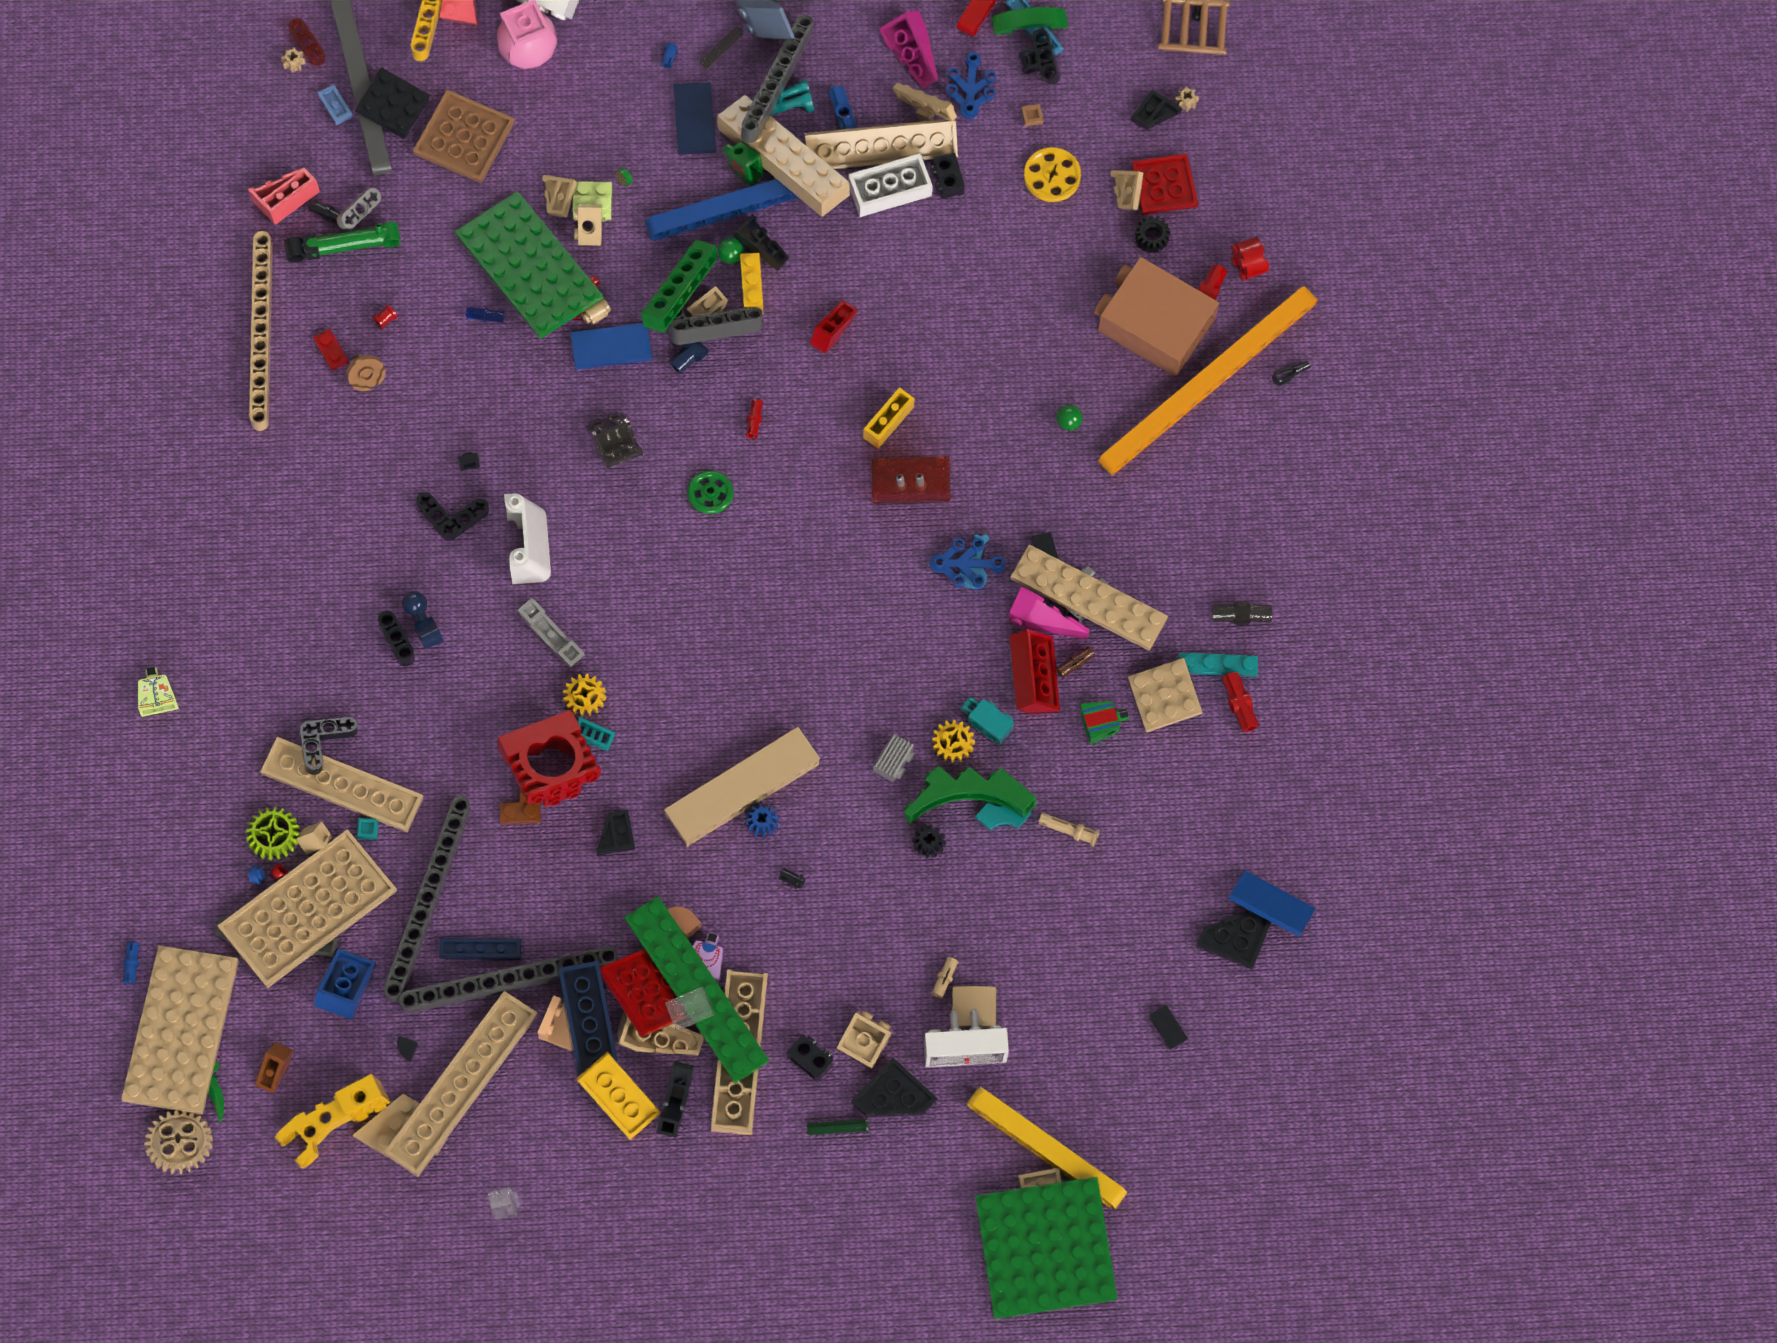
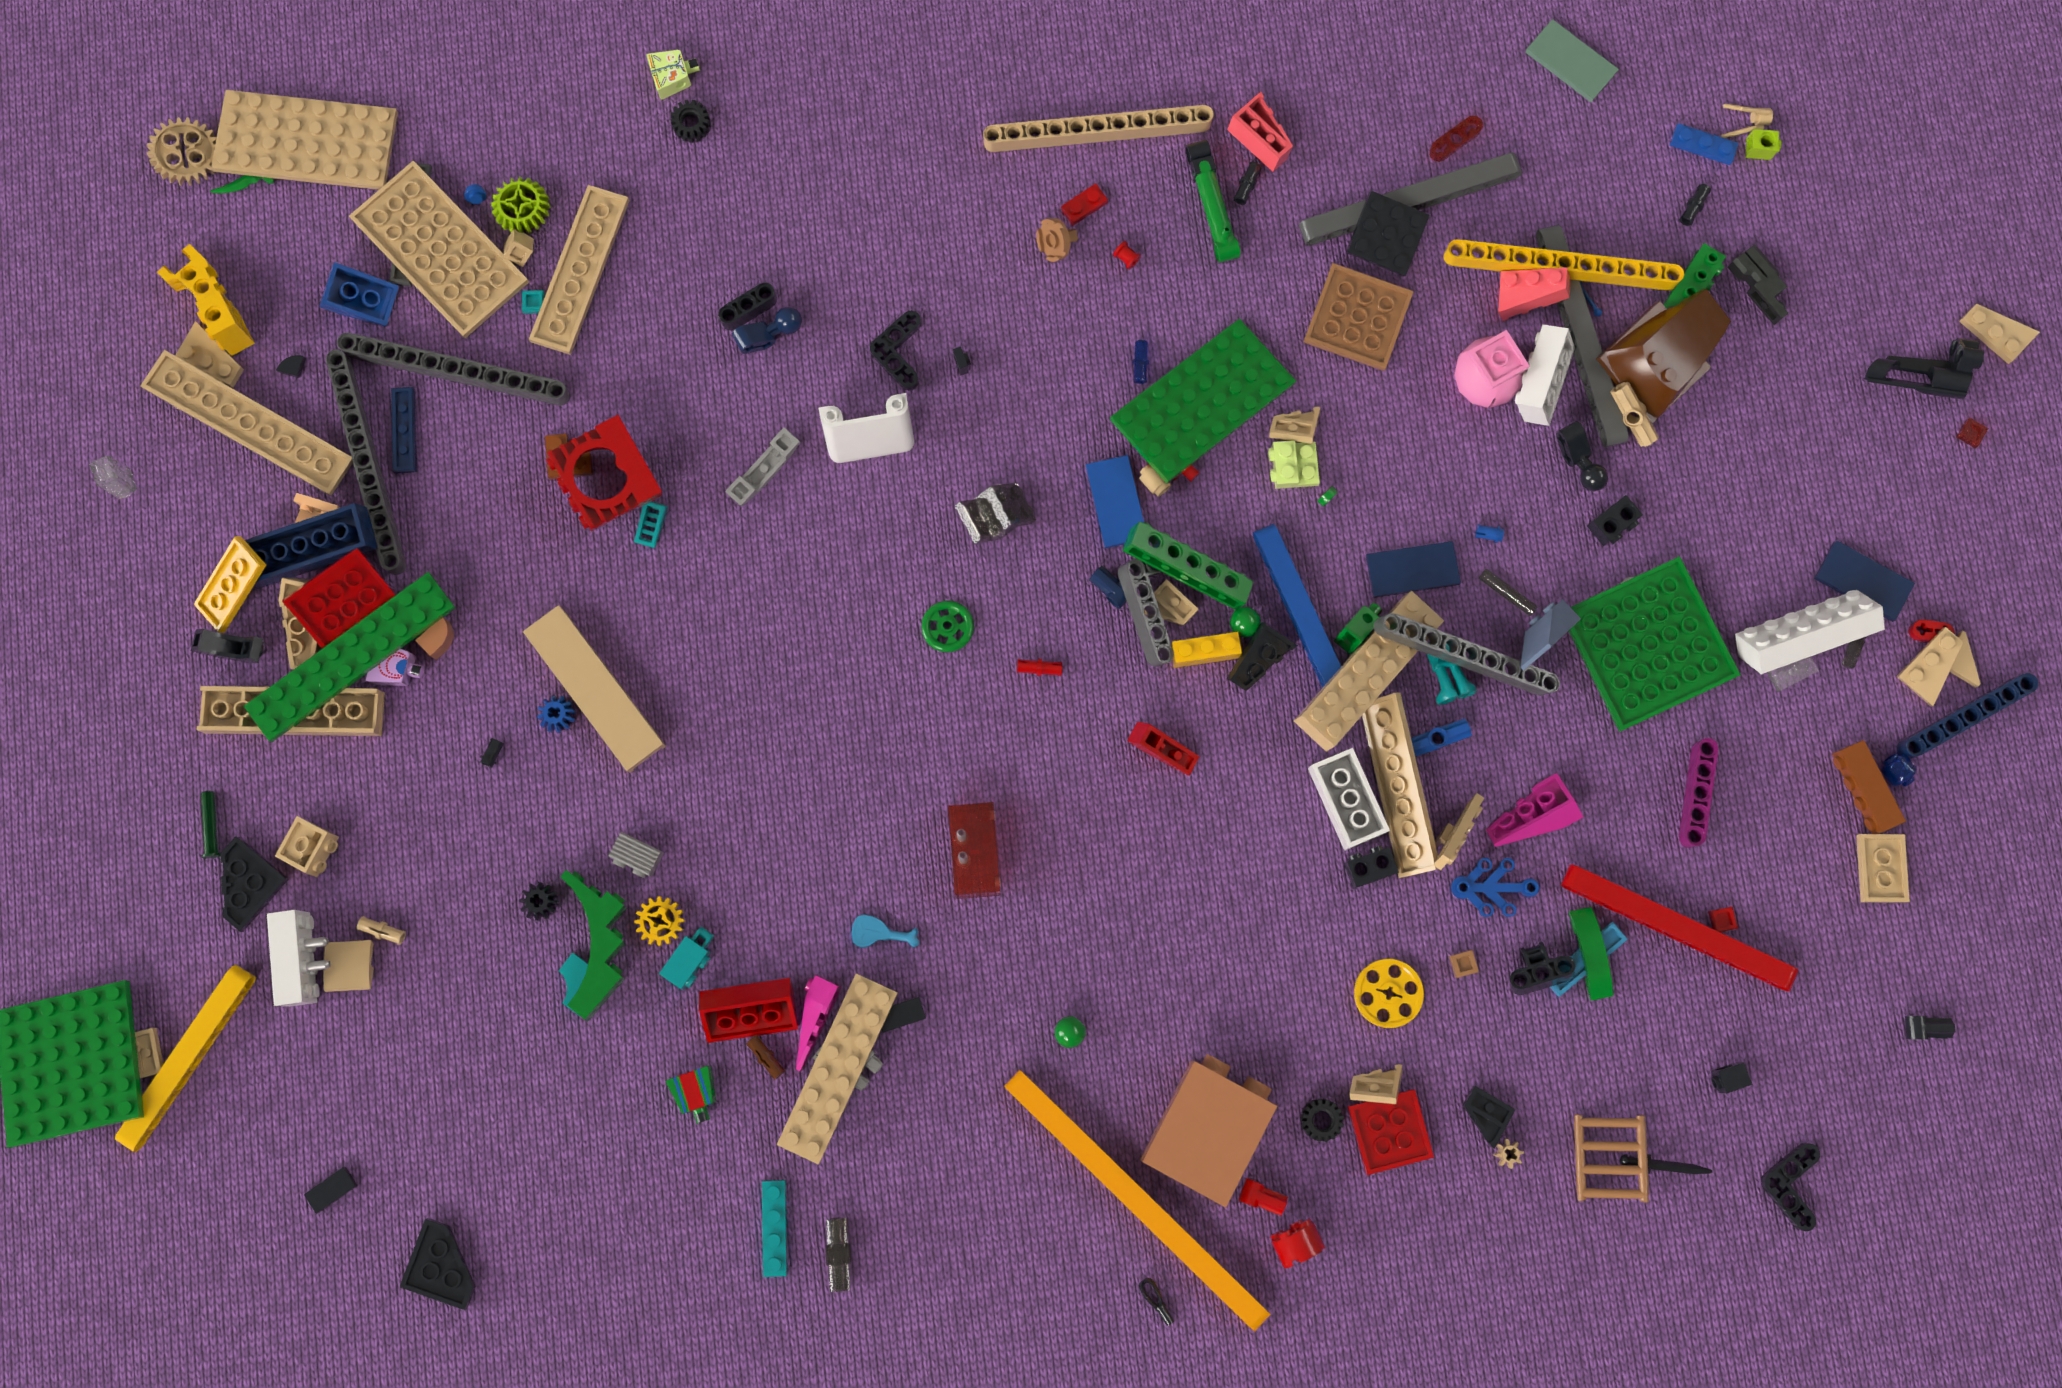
camera: 90 degrees right, 10 degrees up
(130, 963) = (376, 84): blue pin -> none
(204, 668) = (690, 132): none -> black tyre
(274, 1067) = (267, 235): dark orange slope -> none
(278, 872) = (485, 217): red hinge -> none
(289, 57) = (1430, 125): tan gear -> none
(315, 737) = (626, 234): black beam -> none
(335, 104) = (1381, 175): medium blue plate -> none
(351, 209) = (1253, 221): light grey beam -> none
(592, 693) = (701, 508): yellow gear -> none
(593, 213) = (1270, 460): tan brick -> none
(616, 834) = (535, 559): black wing -> none
(689, 1008) = (317, 648): clear plate -> none
(806, 1061) = (280, 783): black brick -> none
(888, 418) = (1049, 818): yellow brick -> none
(964, 563) = (877, 919): blue plant -> none
(1078, 831) = (558, 1071): tan pin -> none
(1165, 695) = (729, 1166): tan plate -> none
(1240, 702) = (725, 1257): red piece -> none
(1272, 903) = (476, 1307): blue tile -> none

